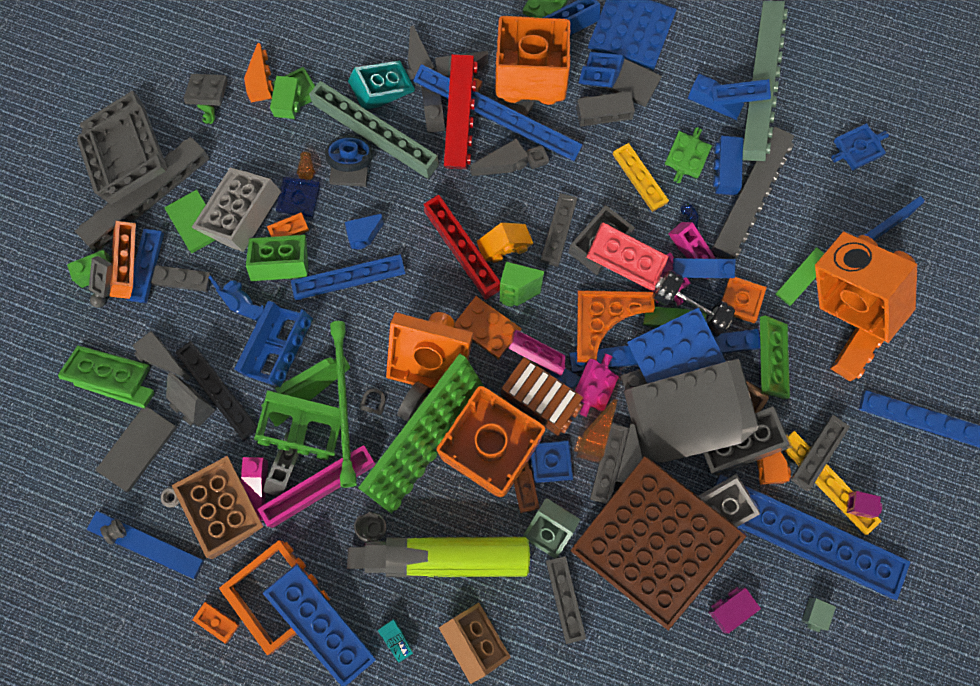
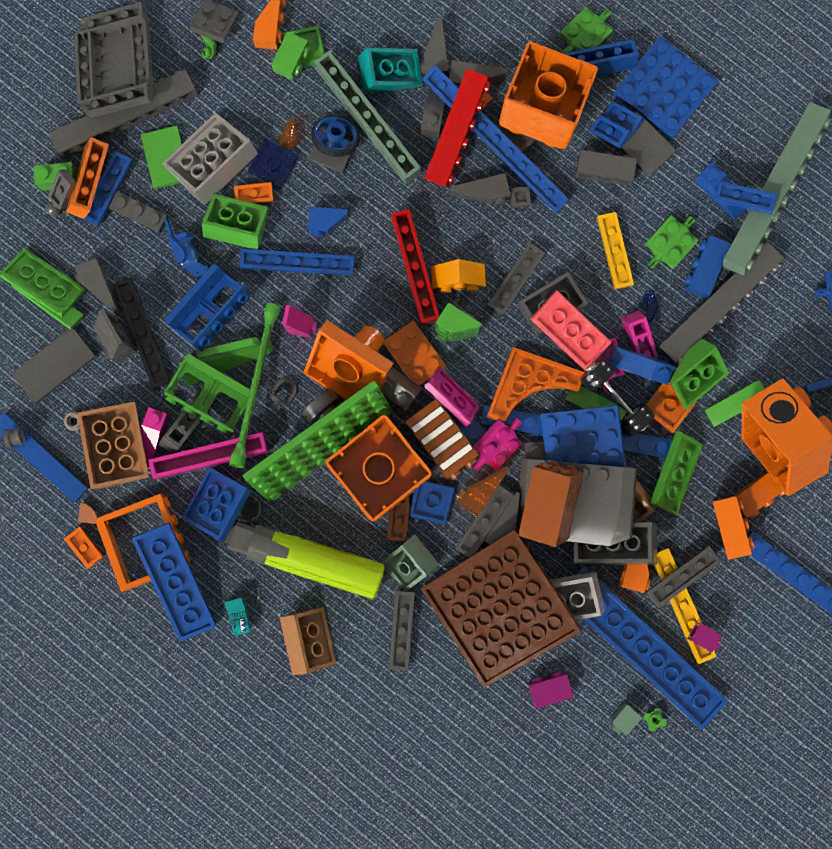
camera: 20 degrees right, 10 degrees up
(209, 587) = (87, 514): none -> nougat tile
(339, 532) = (216, 504): none -> blue plate
(367, 330) = (298, 322): none -> dark pink slope
(486, 362) = (400, 389): none -> dark grey brick
(670, 419) = (550, 503): none -> dark orange brick
(759, 257) = (698, 373): none -> bright green slope
(841, 605) = (648, 717): none -> bright green plate
(848, 389) = (733, 527): none -> orange slope

